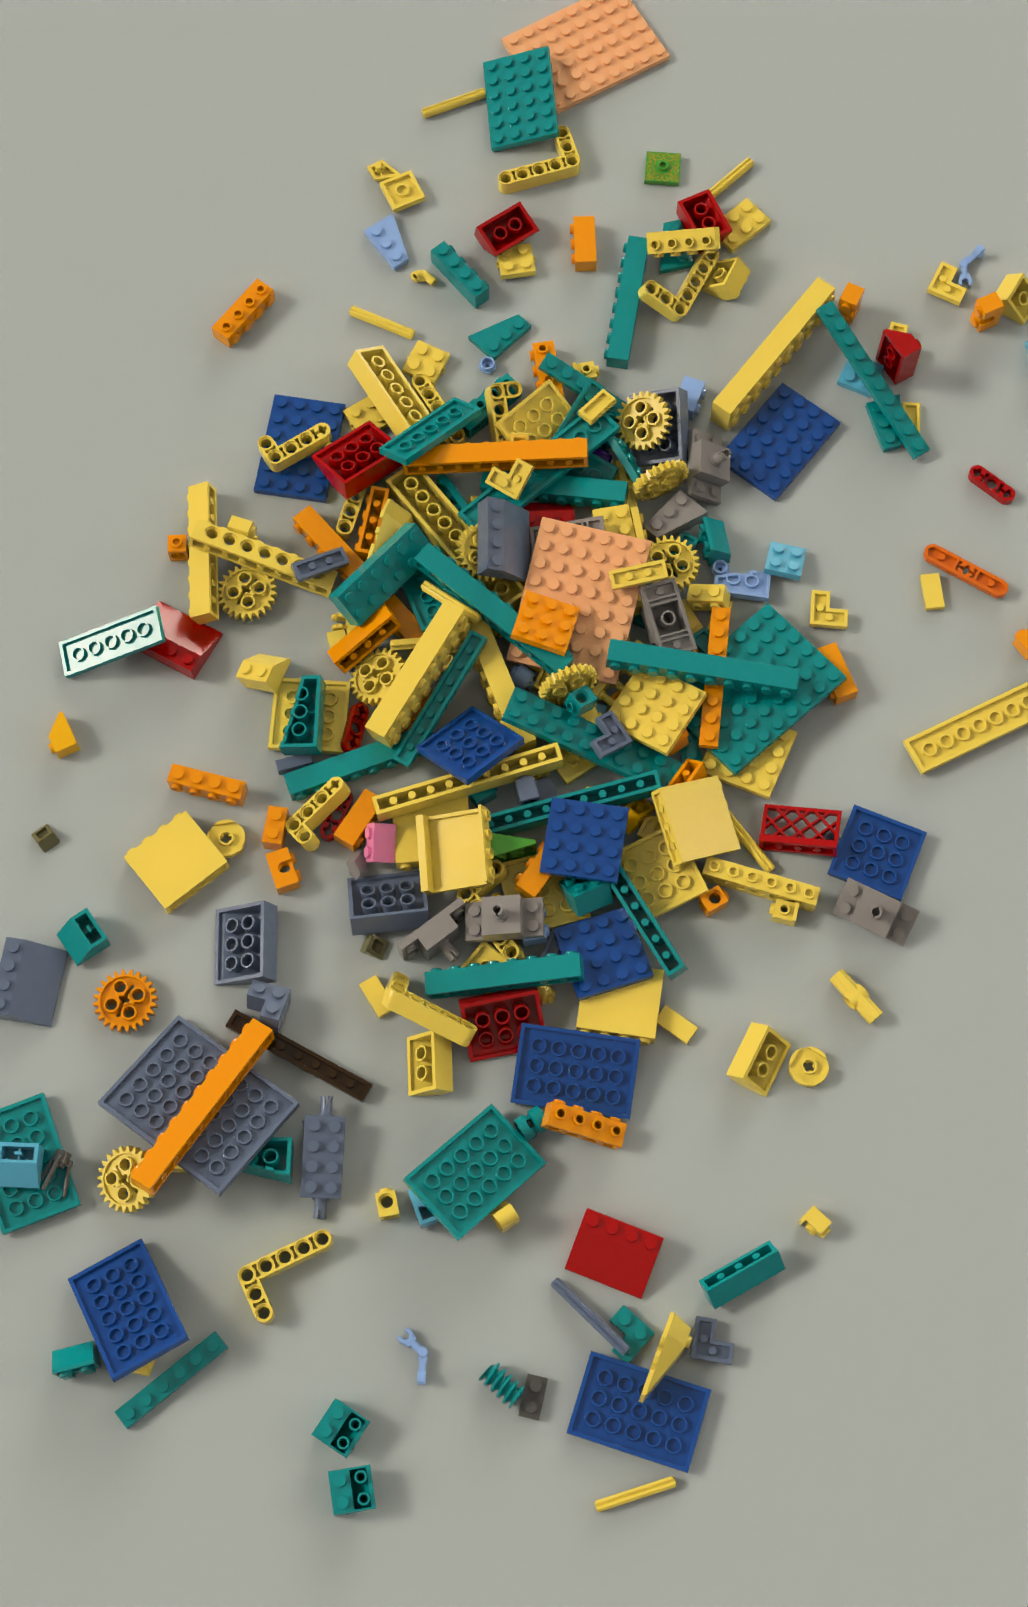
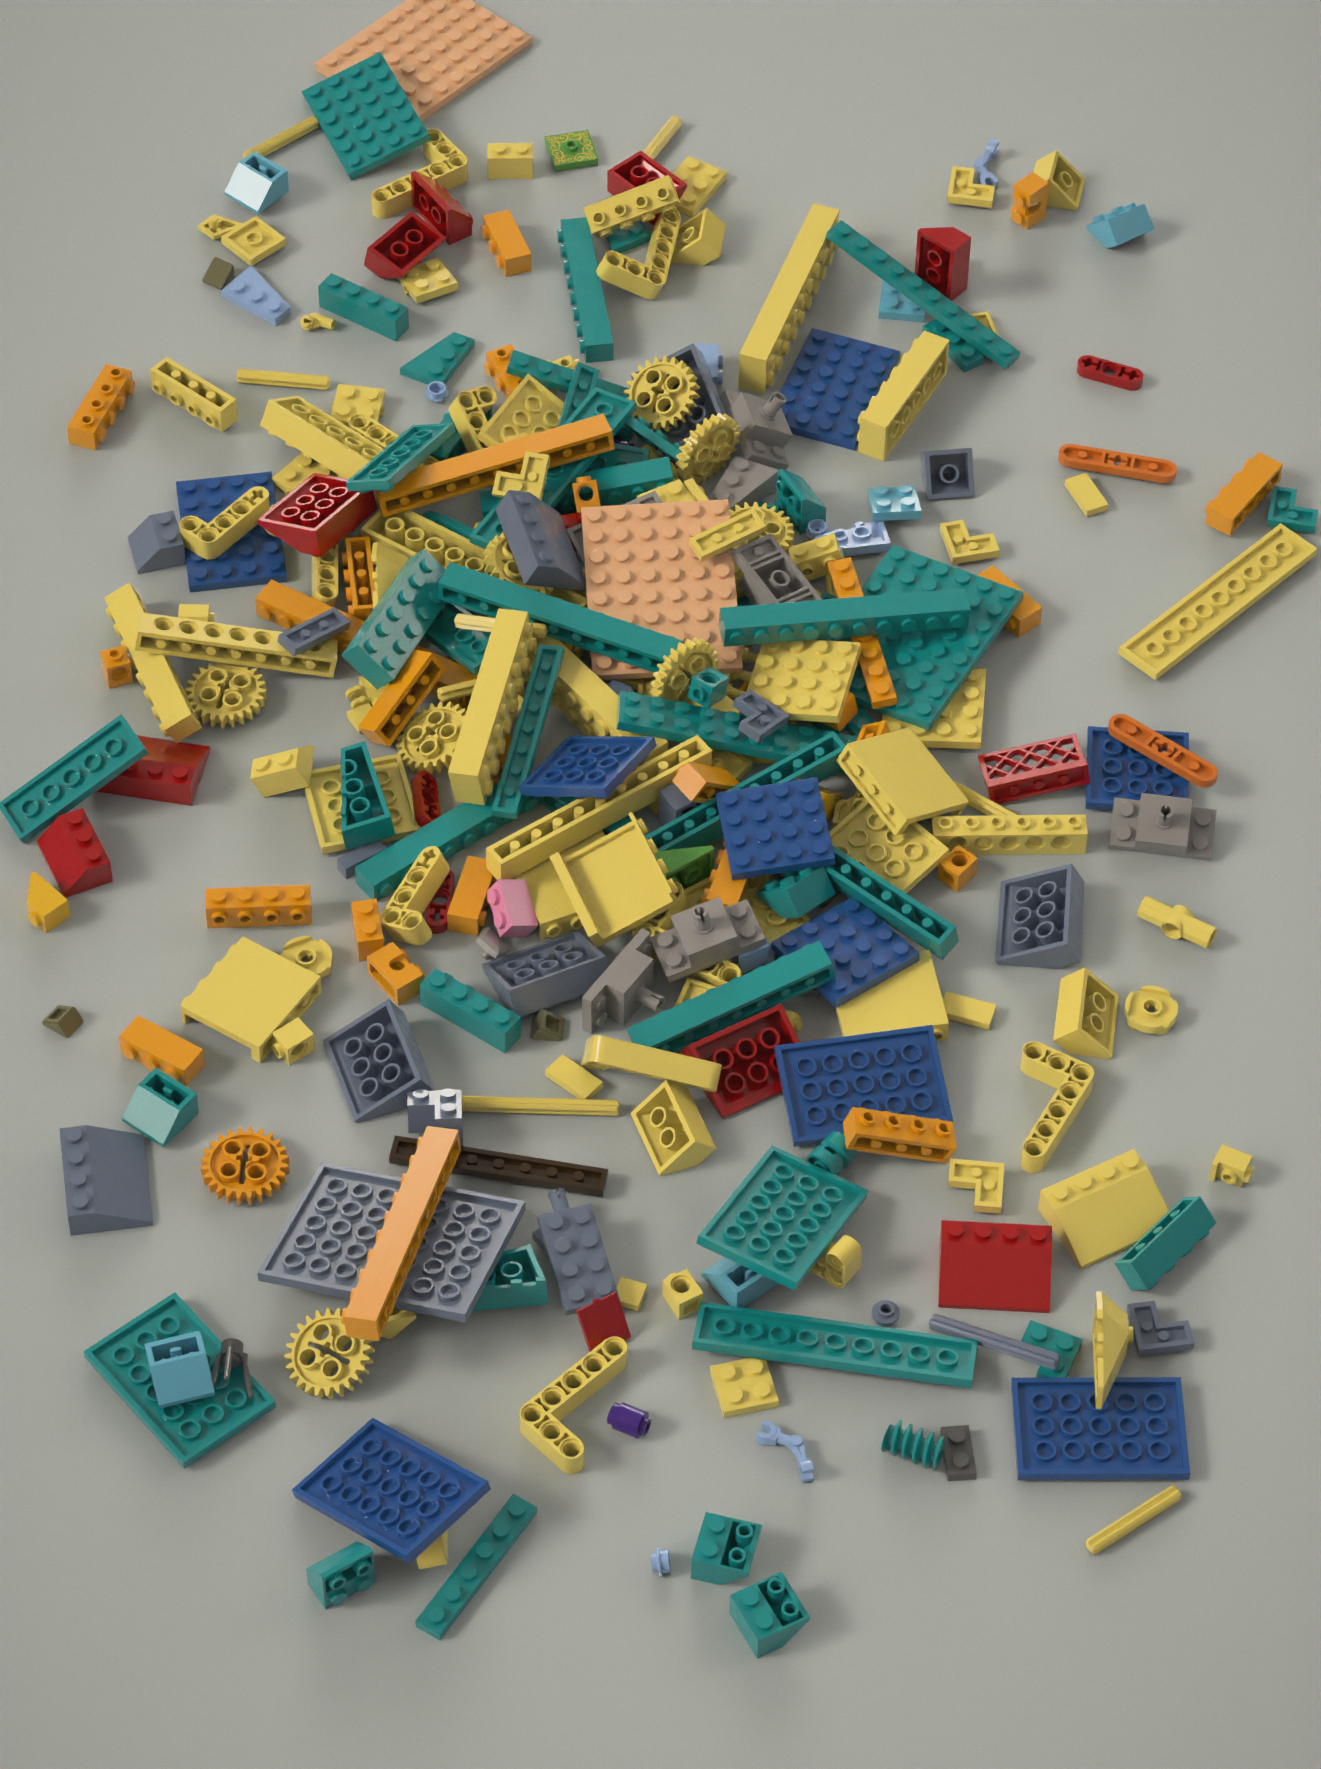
camera: 20 degrees left, 20 degrees down
(98, 701) = (75, 854): none -> red slope
(100, 887) = (161, 1050): none -> light orange brick
(192, 907) = (293, 1041): none -> light yellow brick
(242, 446) = (157, 543): none -> sand blue slope
(296, 1419) = (661, 1561): none -> light blue plate
(311, 322) = (194, 394): none -> light yellow brick
(314, 1297) = (629, 1420): none -> dark purple brick
(322, 1214) = (603, 1320): none -> red piece
(323, 919) = (470, 1010): none -> teal brick
(345, 1012) = (540, 1105): none -> light yellow axle
(353, 1190) = (631, 1293): none -> light yellow tile
(367, 215) = (219, 273): none -> olive slope
(404, 1292) = (744, 1386): none -> light yellow plate
(420, 141) = (257, 183): none -> medium azure slope
(478, 1282) = (835, 1344): none -> teal plate
(524, 1271) = (885, 1319): none -> sand blue plate
(545, 623) = (631, 611): light orange plate -> none
(546, 199) = (440, 208): none -> red slope
(551, 783) = (702, 781): none -> light orange brick
(552, 505) = (582, 482): none -> light orange brick
(597, 406) = (599, 388): light yellow tile -> none
(612, 168) = (510, 160): none -> light yellow brick
(635, 1175) = (984, 1178): none -> light yellow plate
(710, 1129) = (1073, 1085): none -> light yellow beam
(711, 1229) = (1103, 1208): none -> light yellow slope
(757, 964) = (1041, 919): none -> sand blue slope
(786, 918) = (1050, 855): light yellow brick -> none
(825, 467) = (903, 395): none -> light yellow brick
(834, 544) = (948, 473): none -> sand blue slope
(850, 302) = (862, 218): light orange brick -> none
(911, 861) = (1175, 759): none -> orange piece

